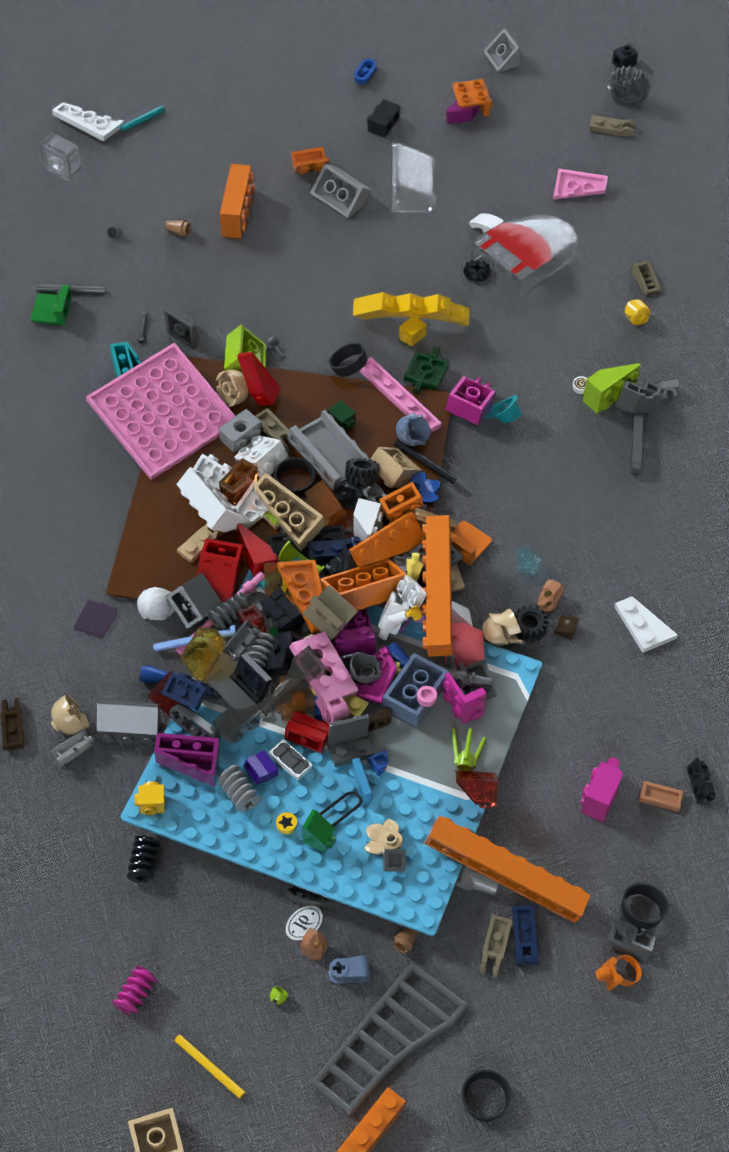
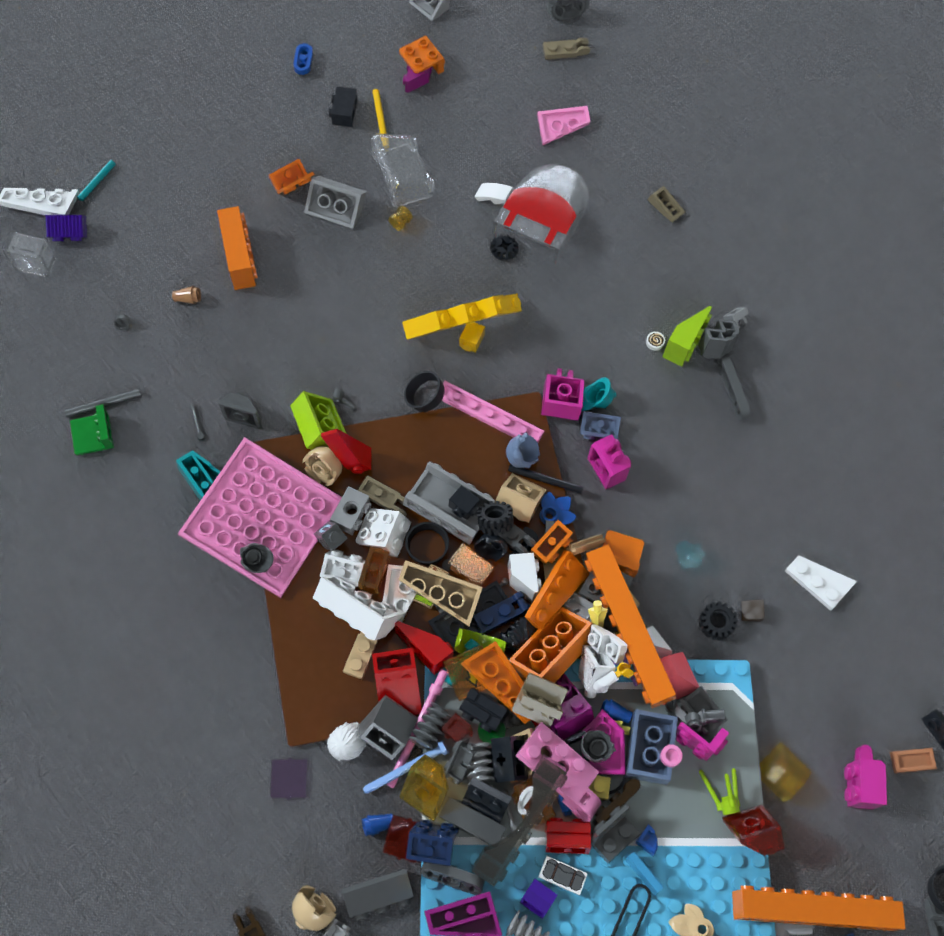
camera: 25 degrees left, 10 degrees up
(100, 145) = (66, 226): none -> dark purple brick
(141, 435) = (256, 557): none -> dark grey hair
(213, 442) = (330, 536): none -> dark grey brick
(339, 451) = (464, 503): none -> black brick
(343, 415) = (446, 458): dark green brick -> none
(391, 220) = (401, 217): none -> clear yellow wheel
(415, 128) = (378, 106): none -> yellow bar
(426, 370) = (503, 376): dark green plate -> none
(488, 463) = (609, 461): none -> dark pink hinge
(496, 436) = (599, 425): none -> sand blue bracket
(501, 629) = (699, 640): tan helmet -> none
(532, 763) = (783, 772): none -> clear yellow slope
(550, 596) = (724, 584): nougat rock -> none
(637, 312) = (675, 245): yellow head -> none

